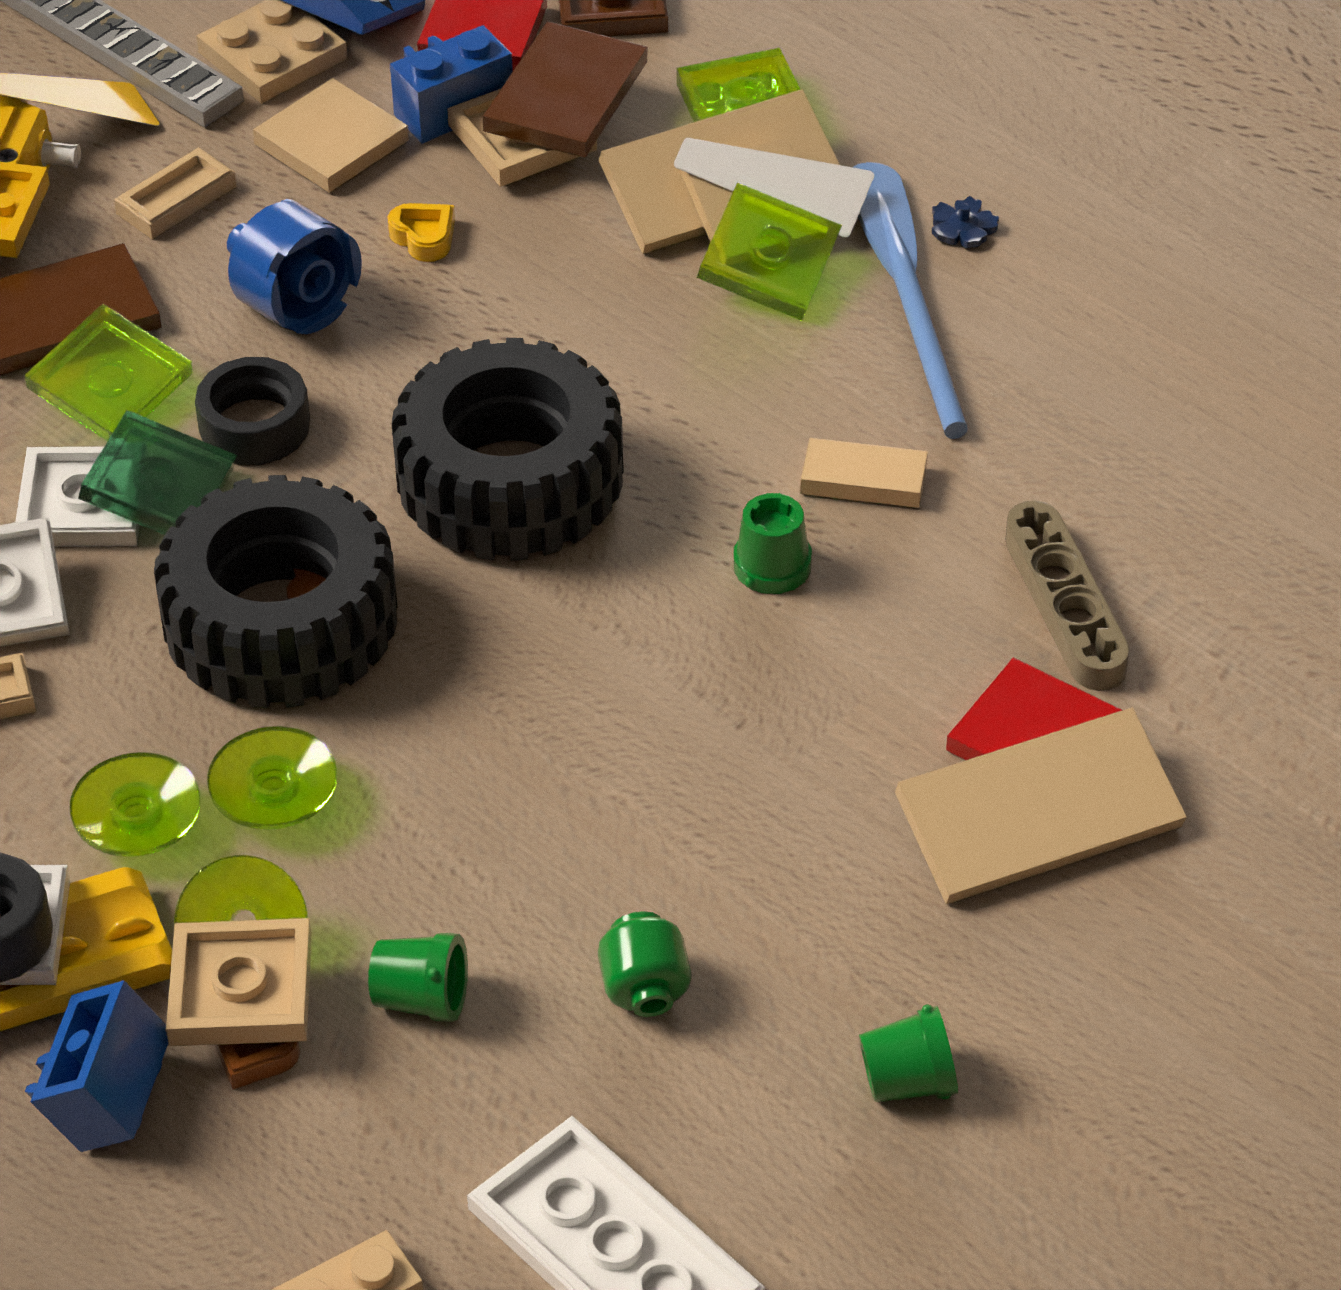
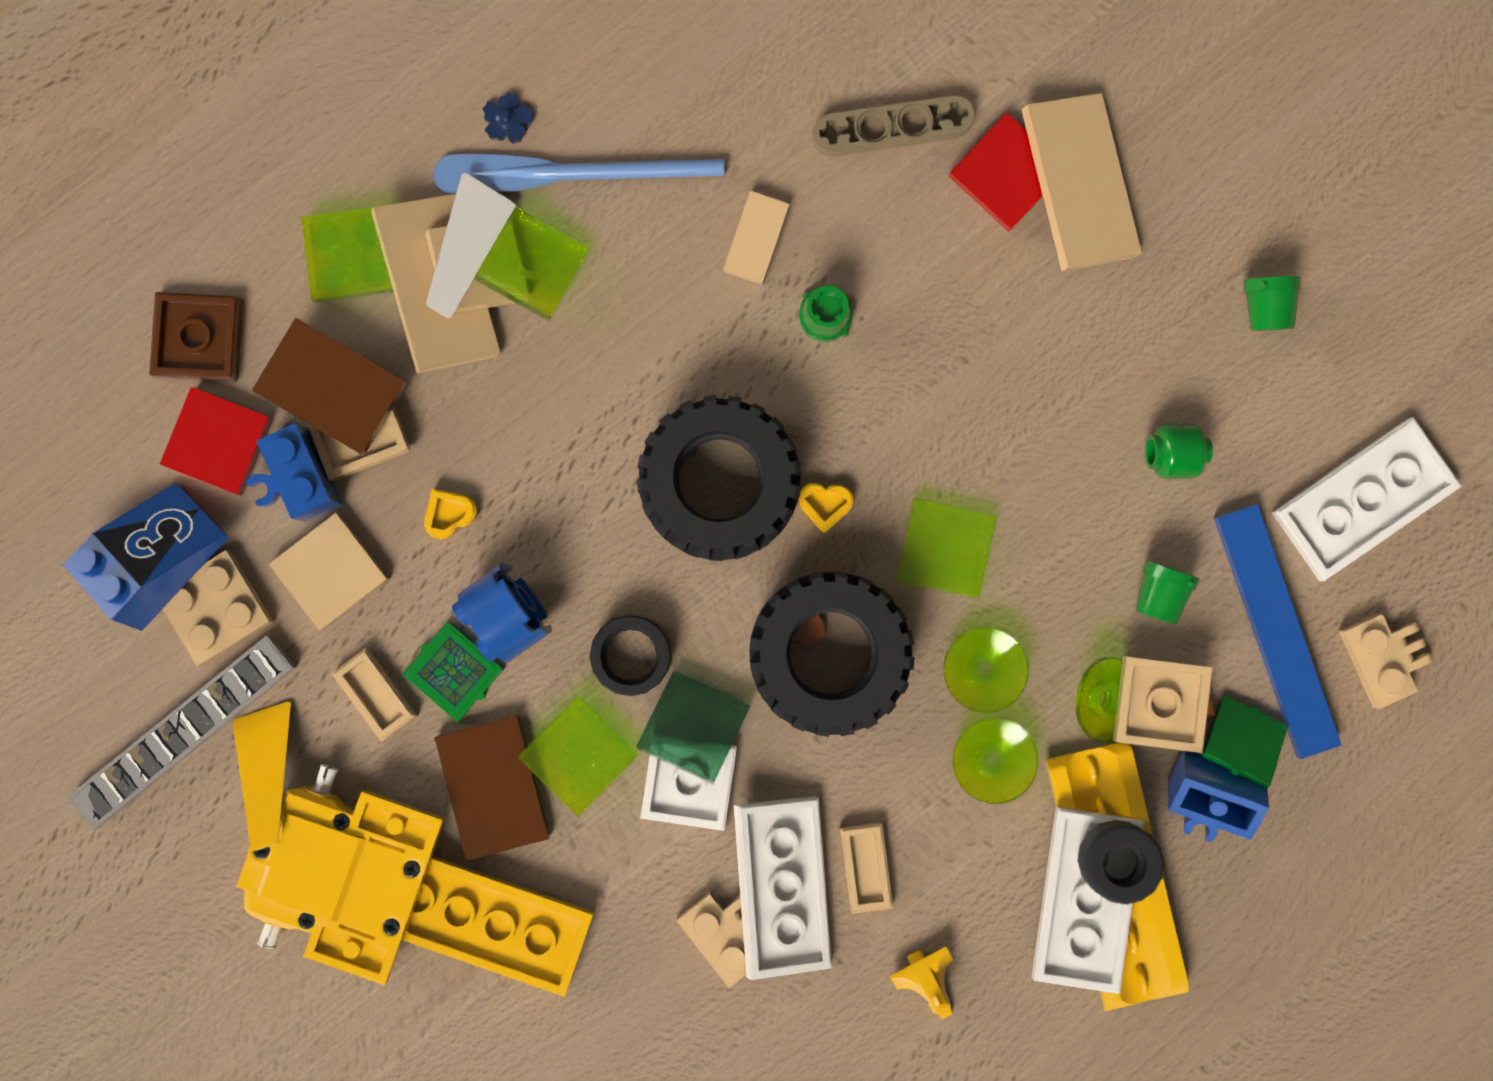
camera: 80 degrees left, 40 degrees up
(190, 1105) = (1245, 741): none -> green piece
(198, 262) = (452, 671): none -> piece
(373, 1149) = (1277, 631): none -> blue tile
(451, 729) = (946, 548): none -> clear neon green tile
(494, 590) = (825, 505): none -> yellow tile

